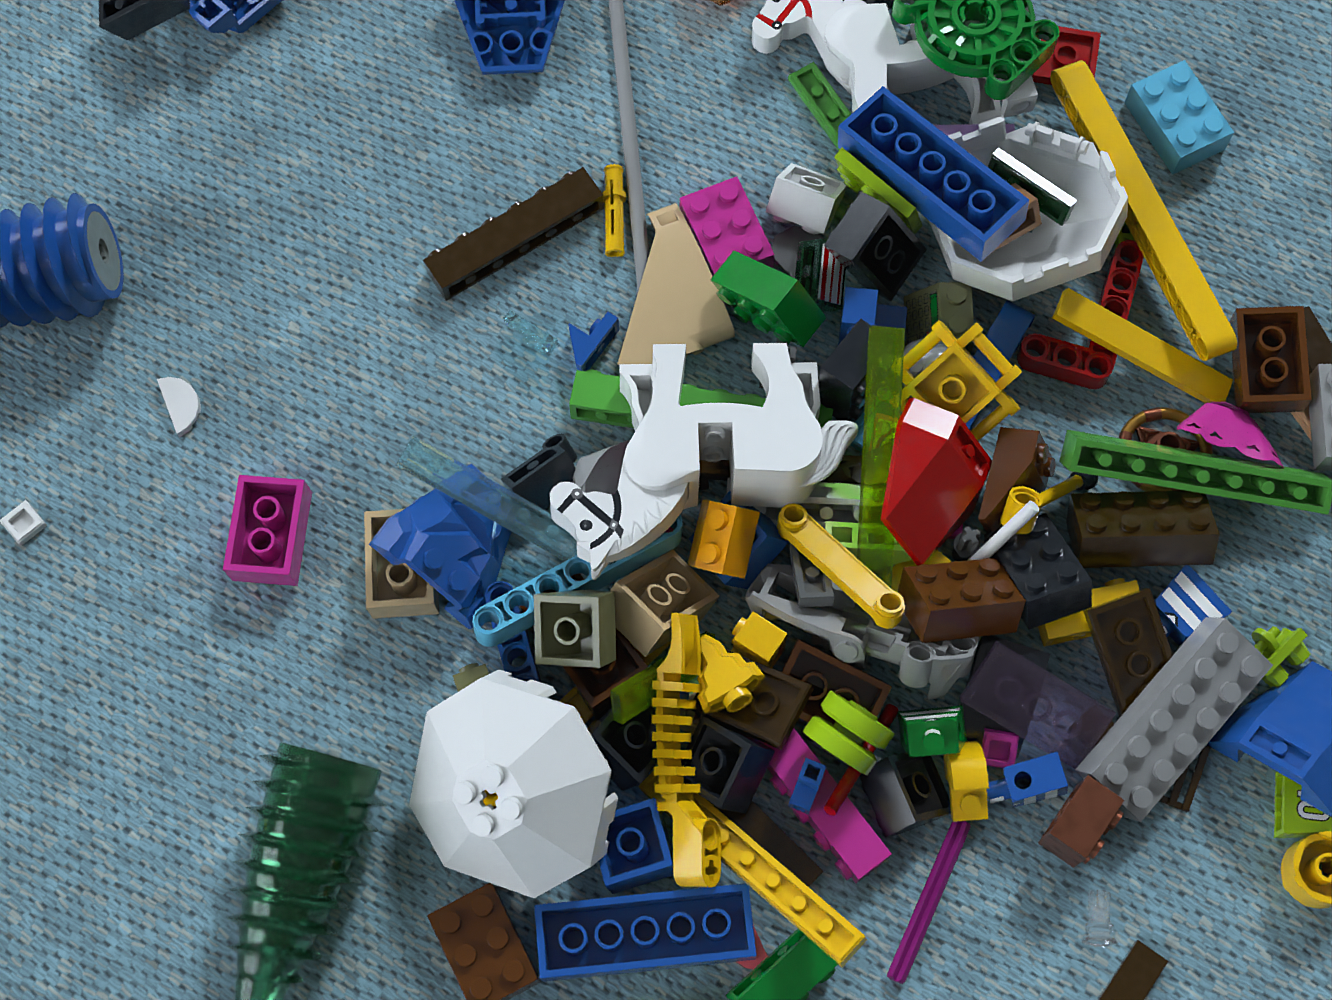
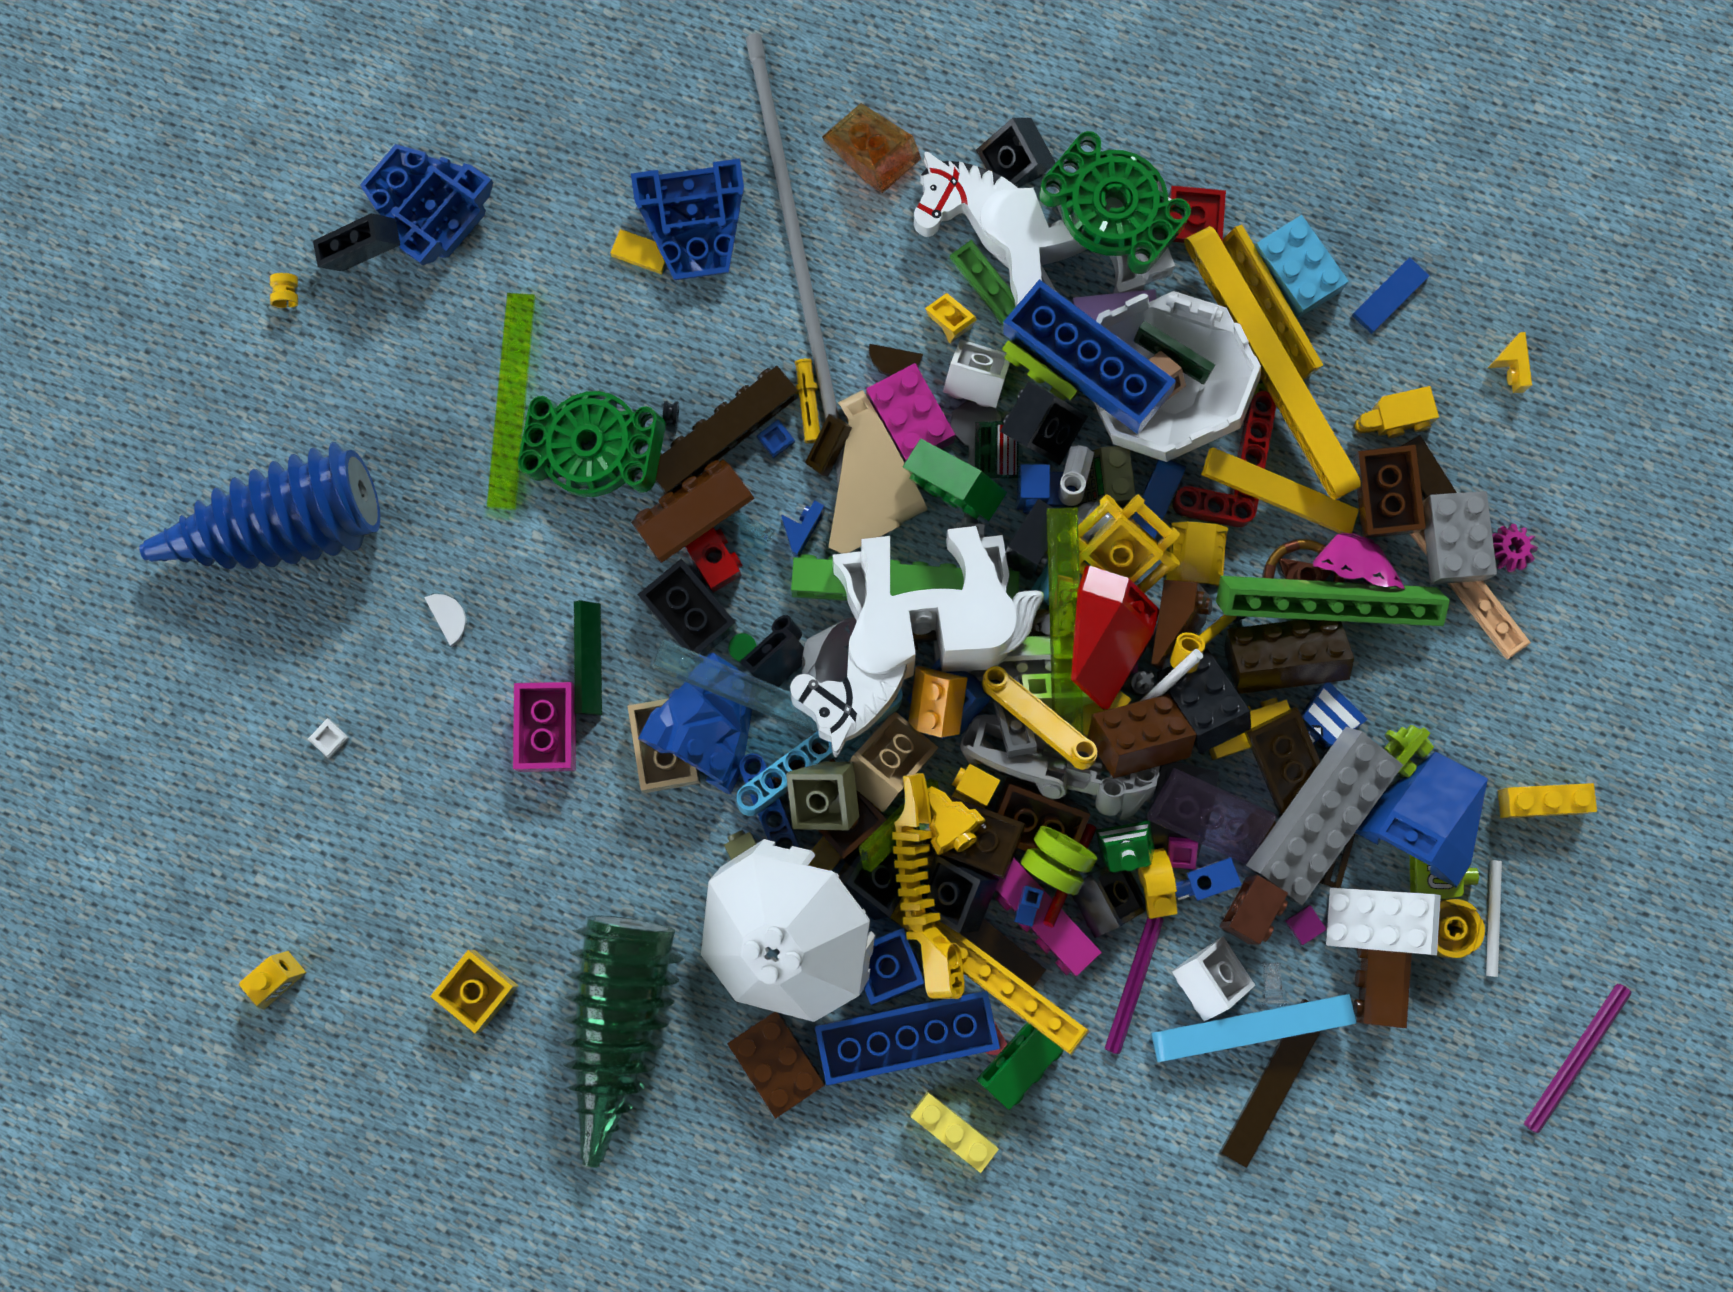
camera: 10 degrees left, 10 degrees up
(60, 50) = (283, 290): none -> yellow wheel
(138, 823) = (474, 991): none -> yellow brick
(286, 186) = (511, 401): none -> clear neon green tile
(329, 461) = (587, 658): none -> dark green tile
(392, 230) = (612, 459): none -> green piece
(447, 45) = (638, 251): none -> yellow tile
(449, 414) = (687, 609): none -> black brick
(460, 210) = (671, 413): none -> black bush
(467, 308) = (692, 509): none -> reddish brown slope
(480, 348) = (715, 574): none -> red brick
(504, 463) = (741, 645): none -> green tile
(573, 247) = (775, 438): none -> blue tile
(630, 255) = (828, 445): none -> dark brown tile
(707, 174) = (892, 360): none -> dark brown tile
(785, 136) = (951, 316): none -> yellow slope
(908, 304) = (1075, 474): none -> white piece
(1026, 903) = (1213, 979): none -> white slope
(1045, 405) = (1199, 551): none -> yellow slope
(1072, 966) = (1253, 1028): none -> medium azure beam
(1144, 850) = (1305, 925): none -> magenta tile
(1148, 149) = (1272, 301): none -> yellow tile
(1239, 907) = (1383, 988): none -> reddish brown slope
(1241, 848) = (1383, 920): none -> white plate
(1280, 157) = (1390, 295): none -> blue tile
(1286, 280) = (1399, 413): none -> yellow hinge

